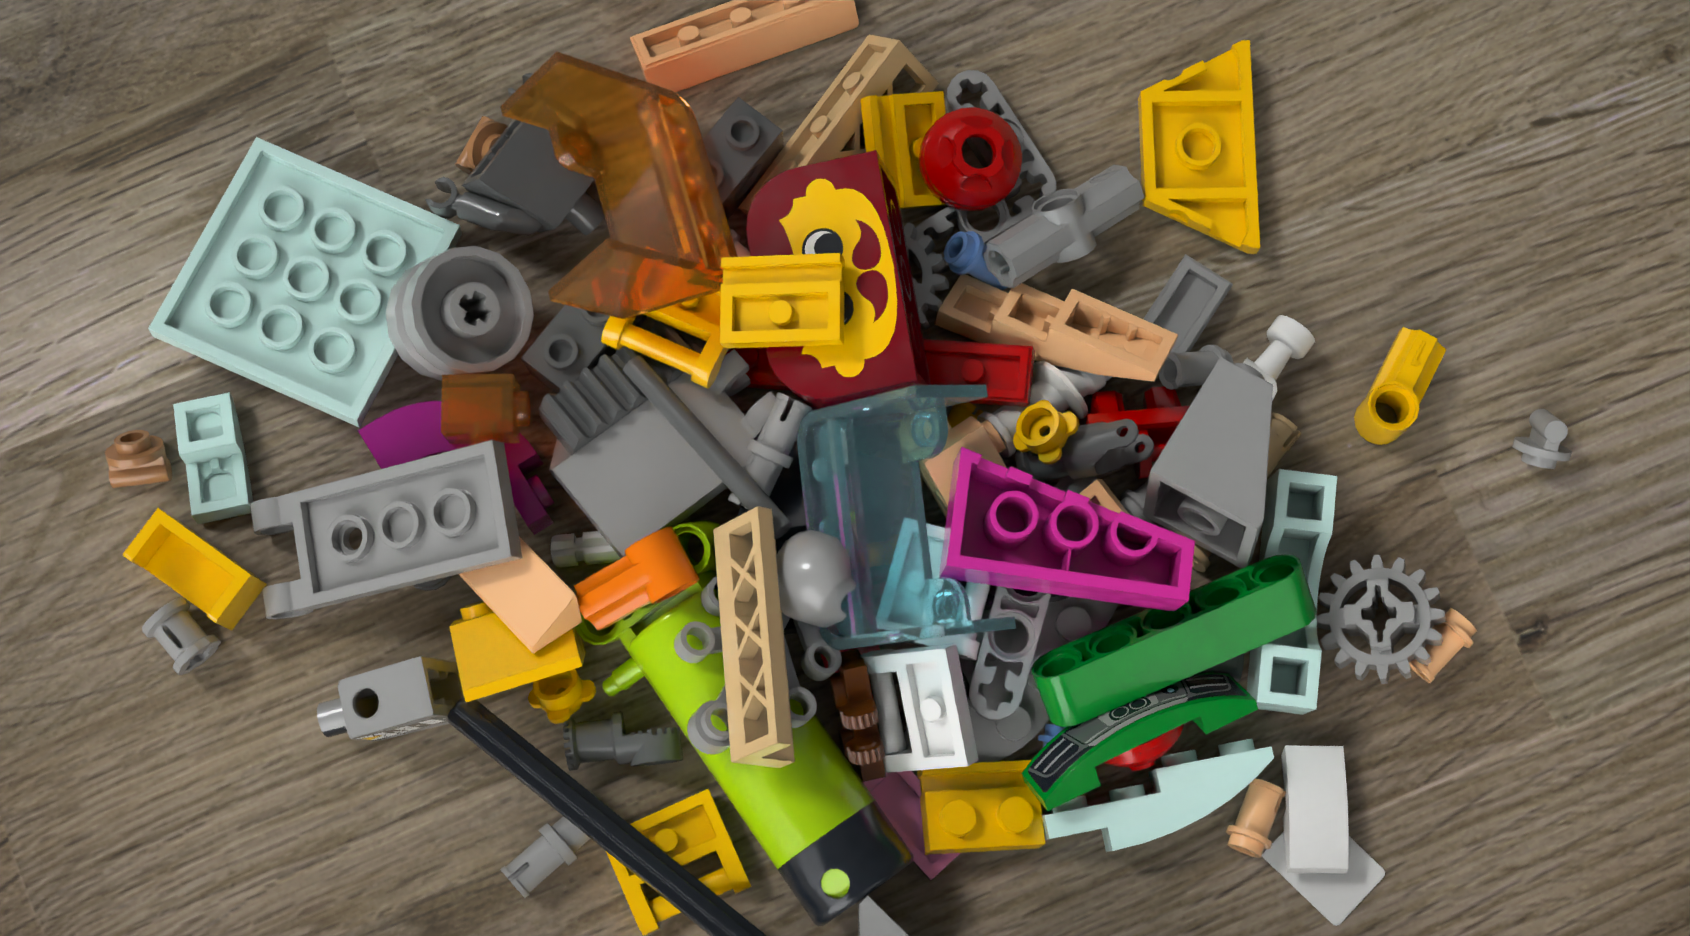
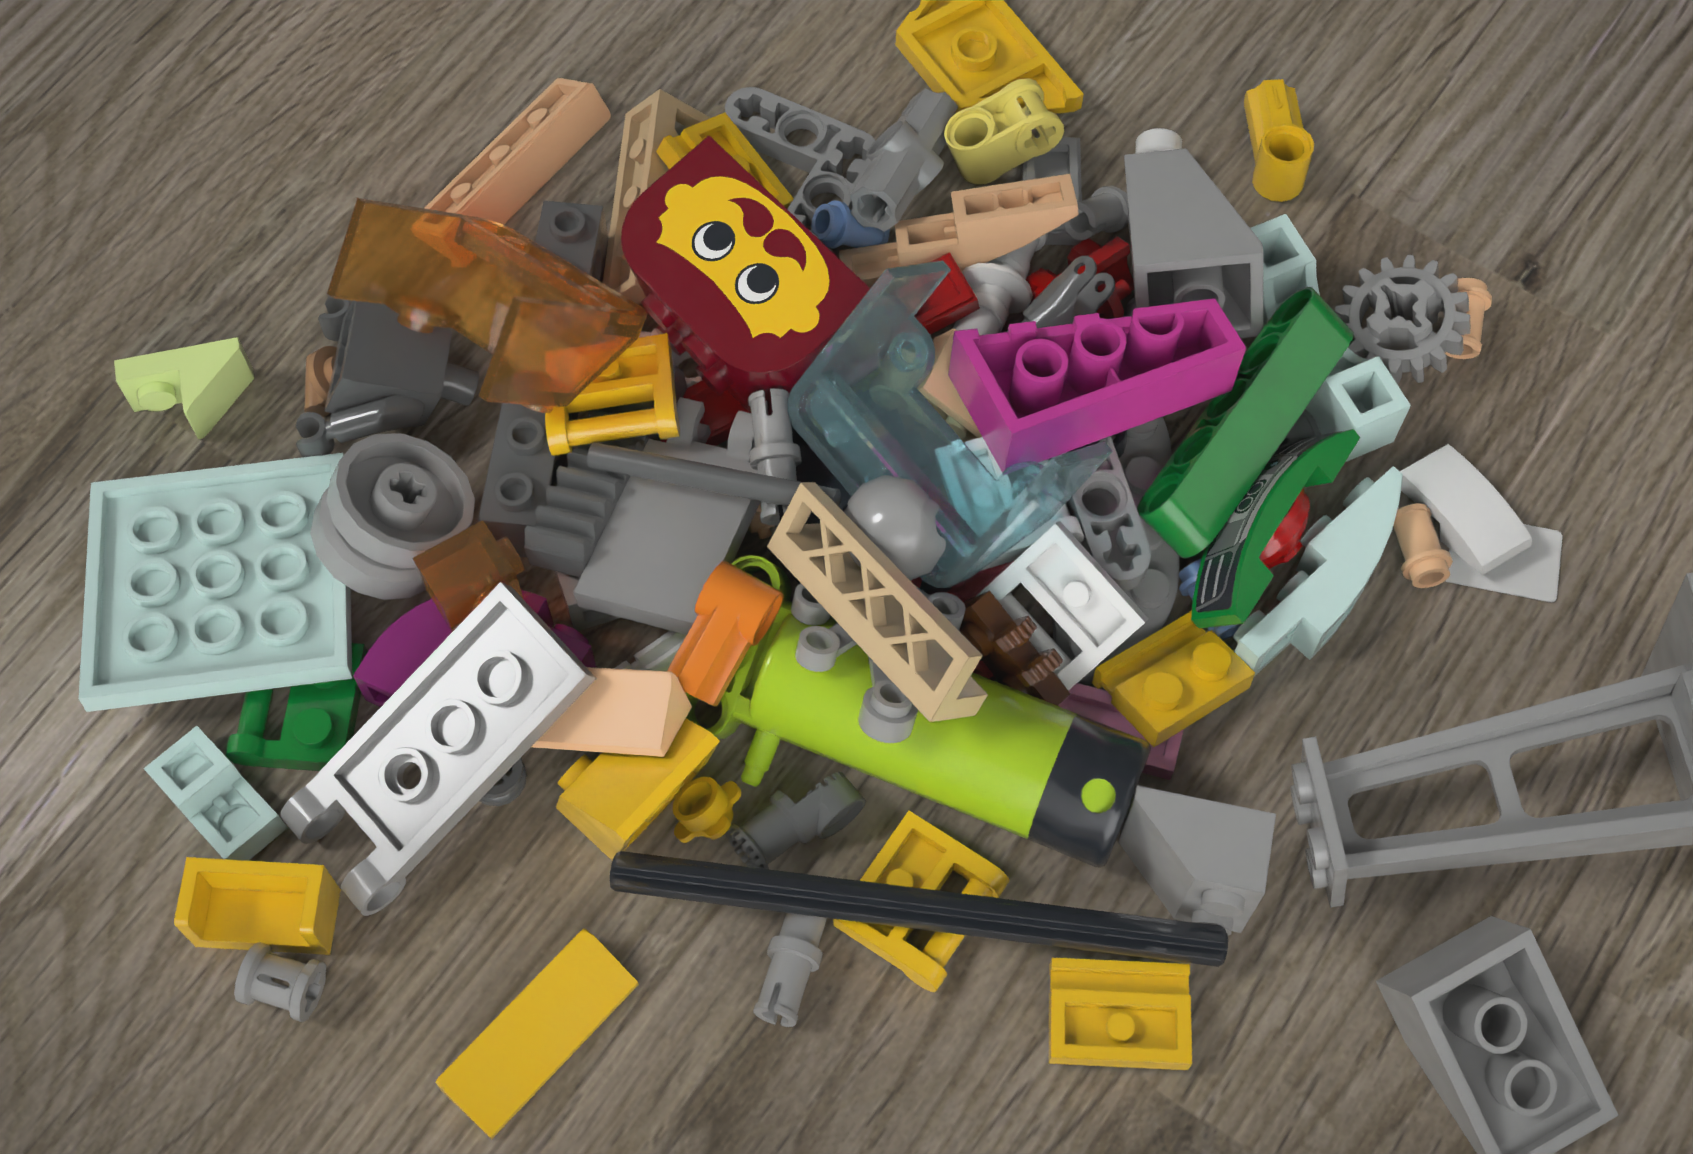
camera: 30 degrees left, 15 degrees down
(137, 460) = (135, 843): medium nougat plate -> none
(316, 444) = (314, 728): none -> green plate
(341, 787) = (536, 1033): none -> yellow slope
(388, 91) = (199, 376): none -> yellowish green slope
(393, 700) = (556, 888): light grey torso -> none
(782, 301) = (707, 295): yellow plate -> none
(951, 177) = (786, 167): red piece -> none
(1035, 422) = (1003, 301): yellow plate -> none
(1172, 248) = (998, 132): none -> light yellow piece
(1543, 444) = (1425, 114): light grey plate -> none

